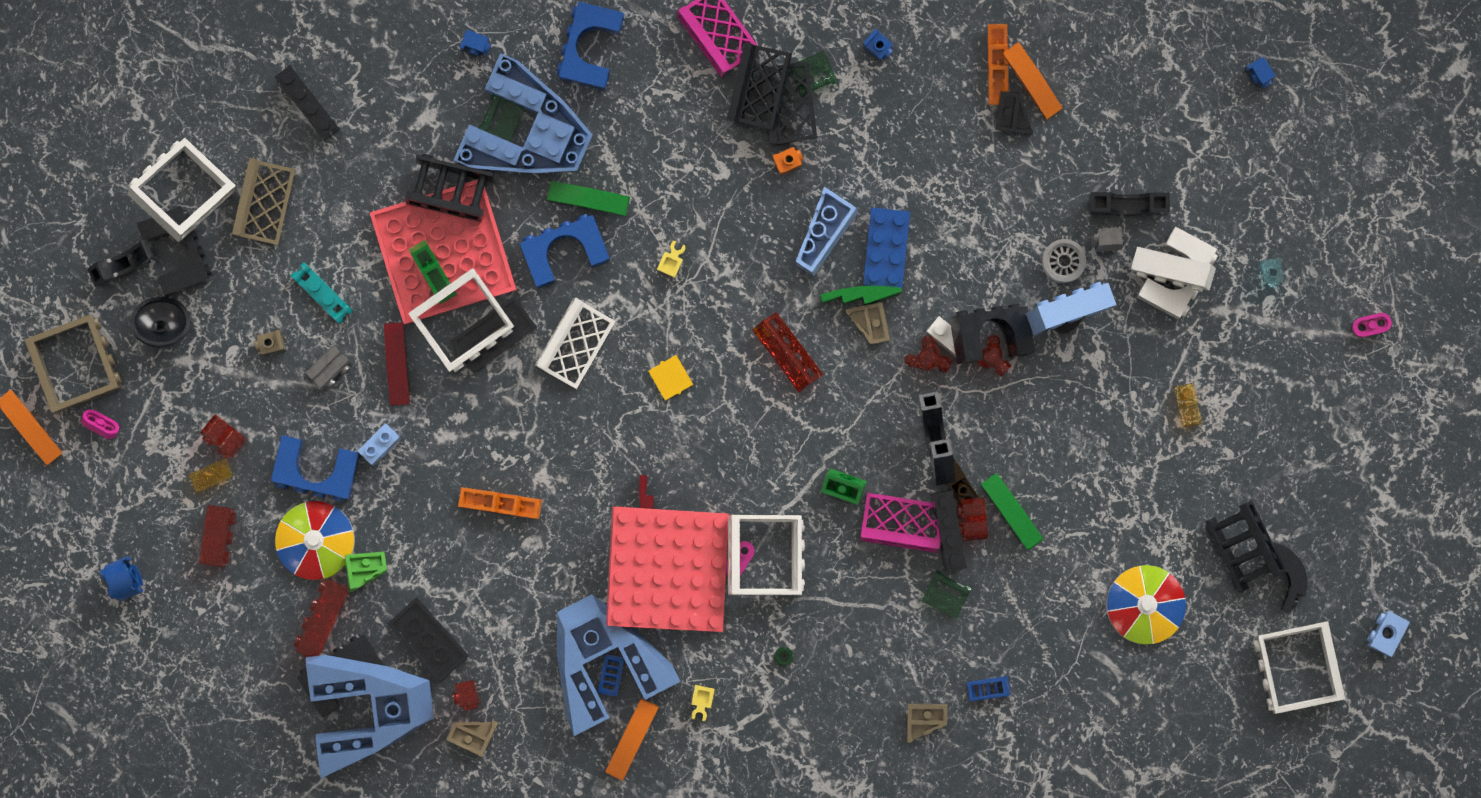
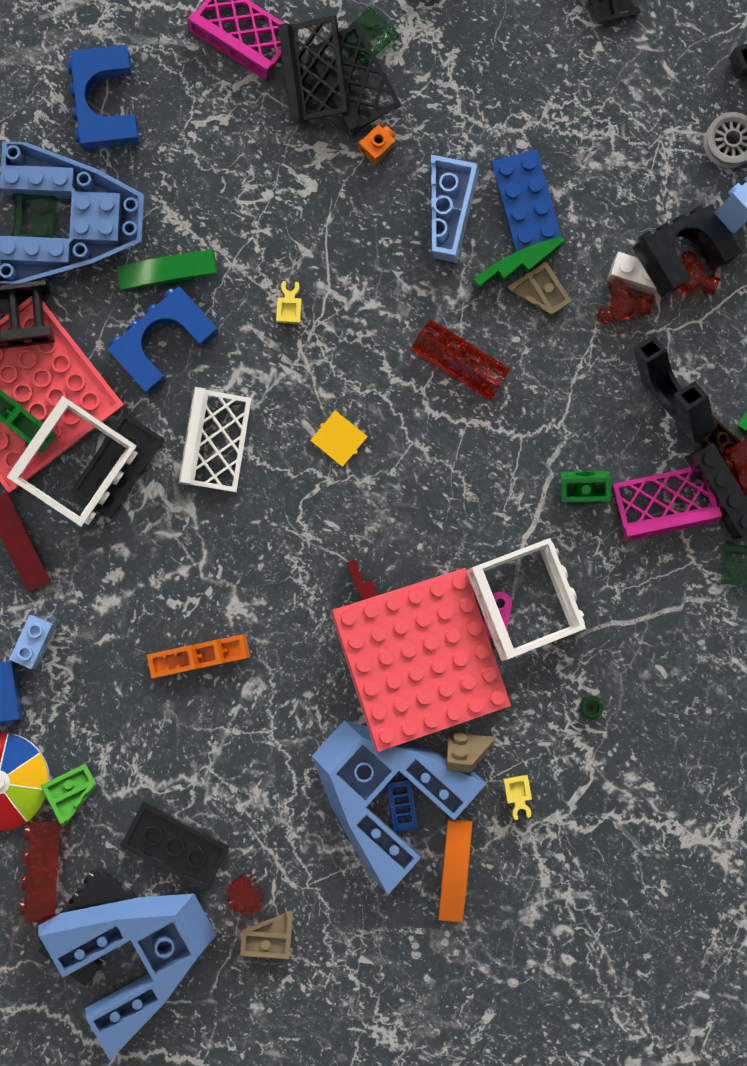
camera: 30 degrees left, 0 degrees up
(675, 652) = (466, 750): none -> dark tan wing

